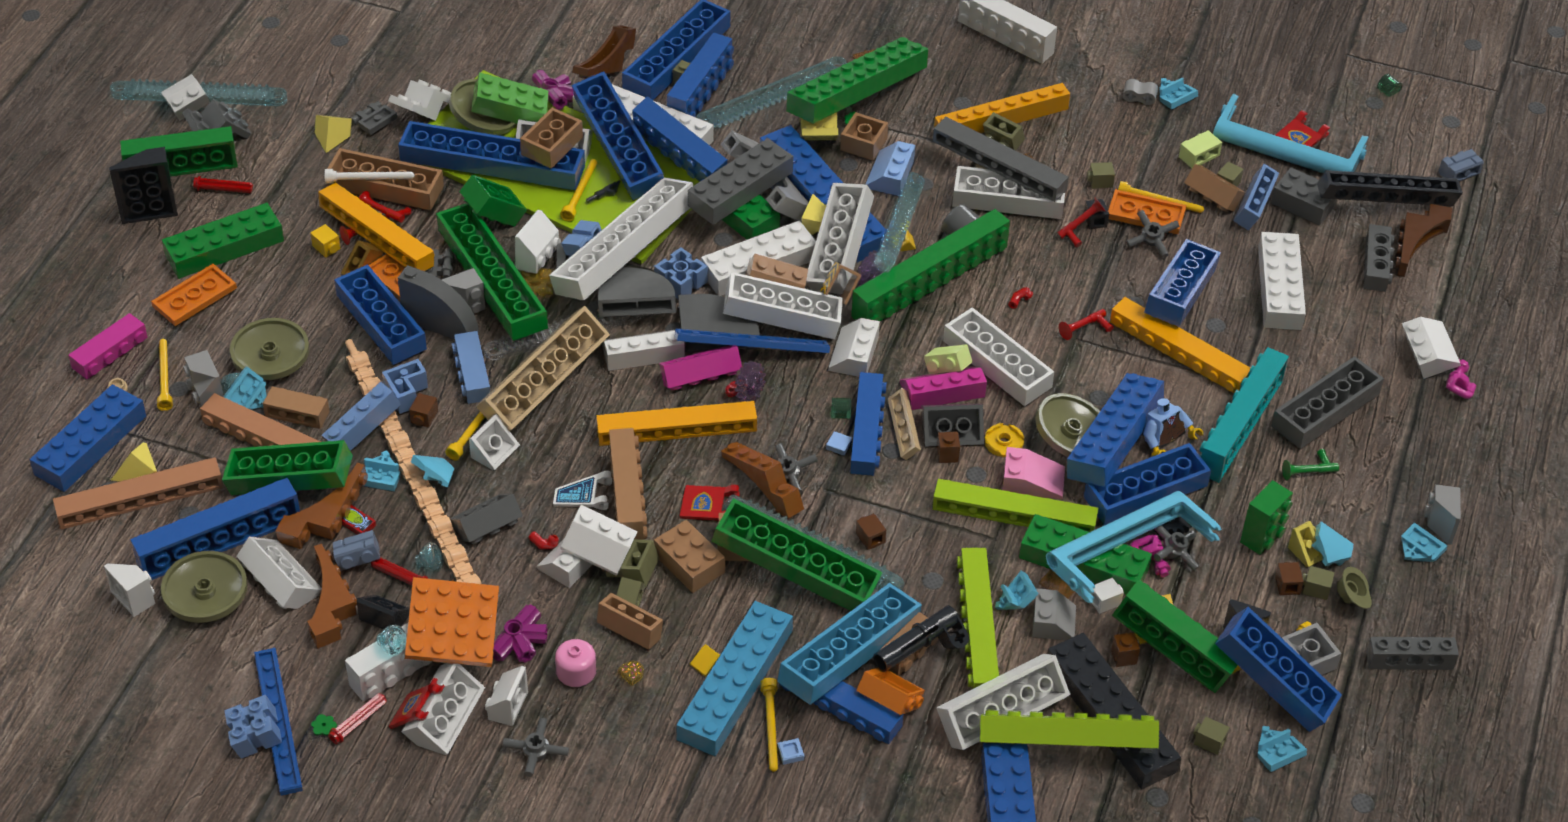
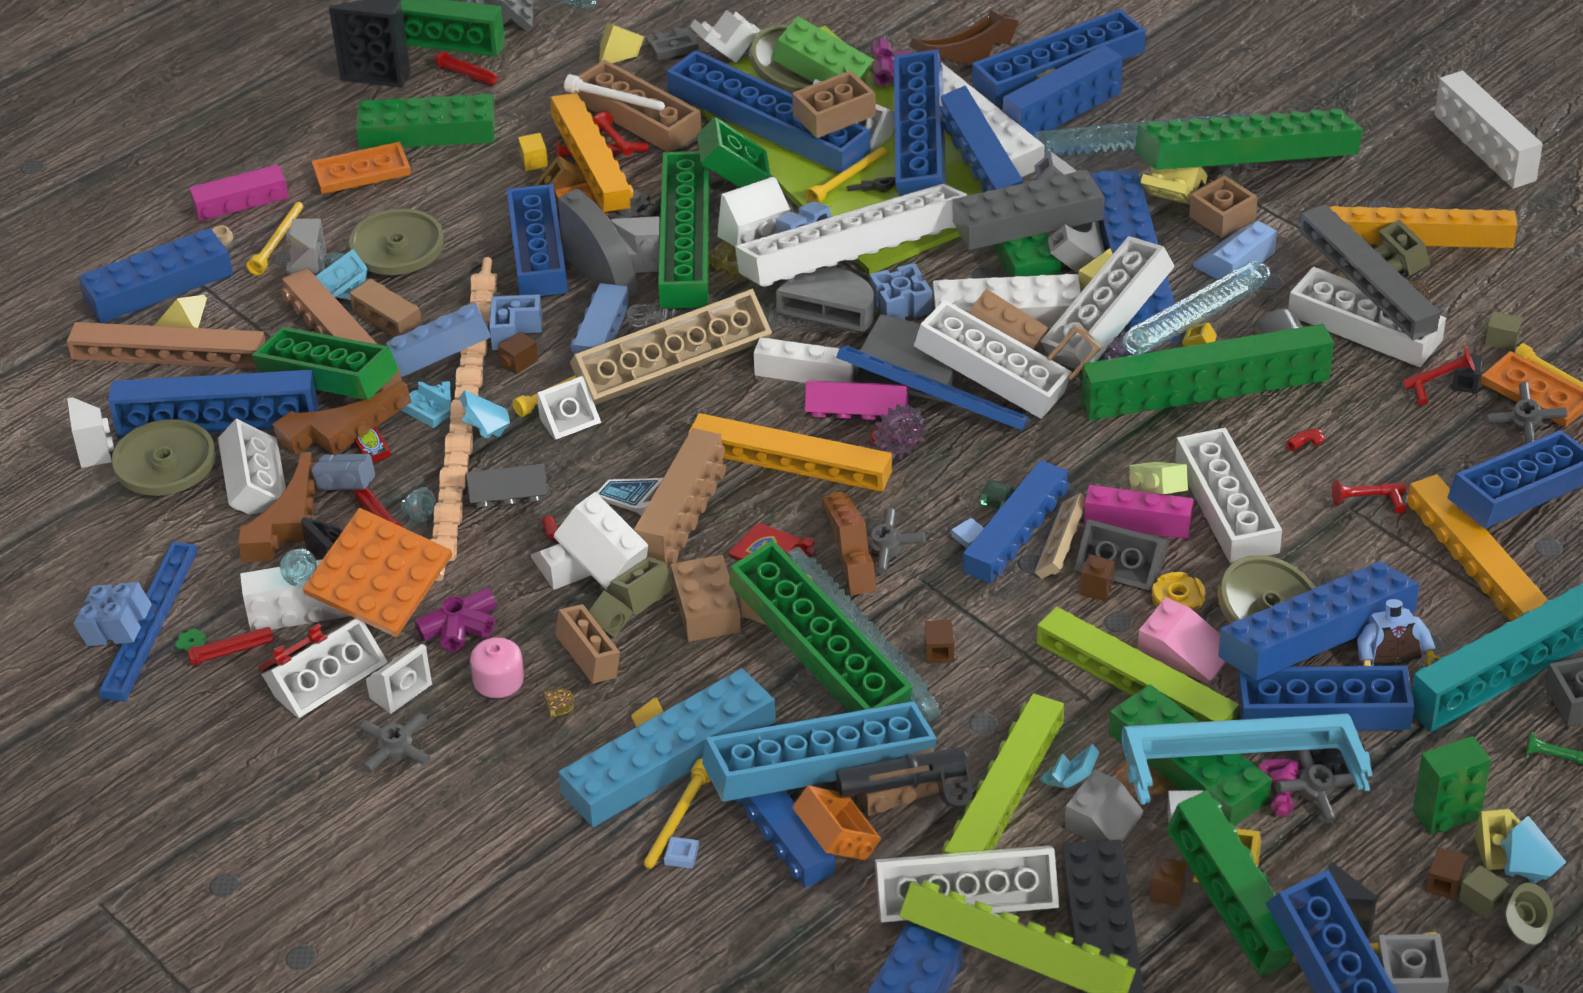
camera: 30 degrees right, 5 degrees down
(855, 347) = (1061, 435): white slope -> none

